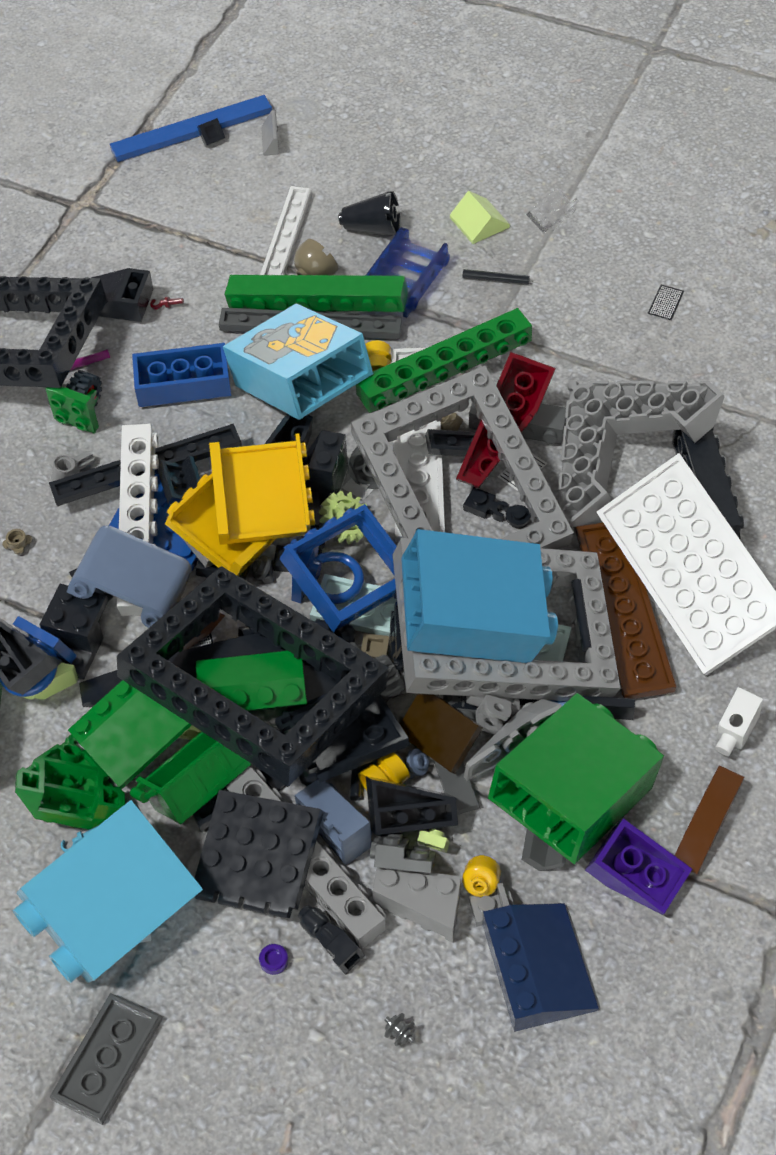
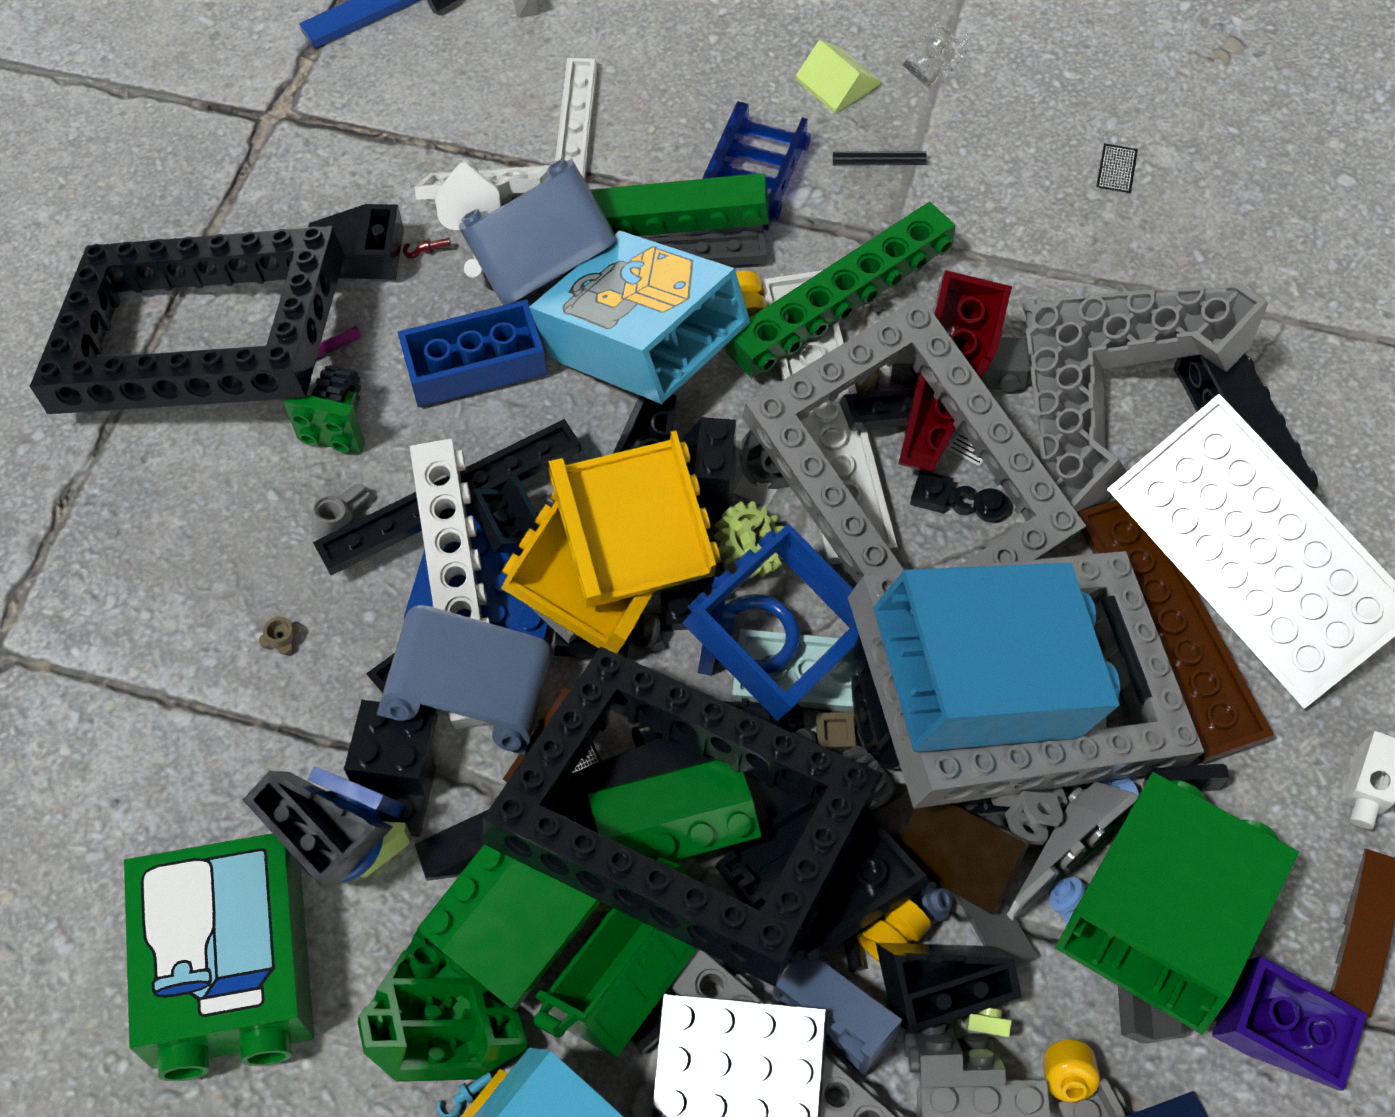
camera: 10 degrees left, 5 degrees up
(199, 274) = (472, 189): none -> white plate
(240, 298) = (538, 233): none -> sand blue windscreen
(313, 261) = (625, 164): dark tan cylinder -> none
(372, 215) = (692, 88): black cone -> none

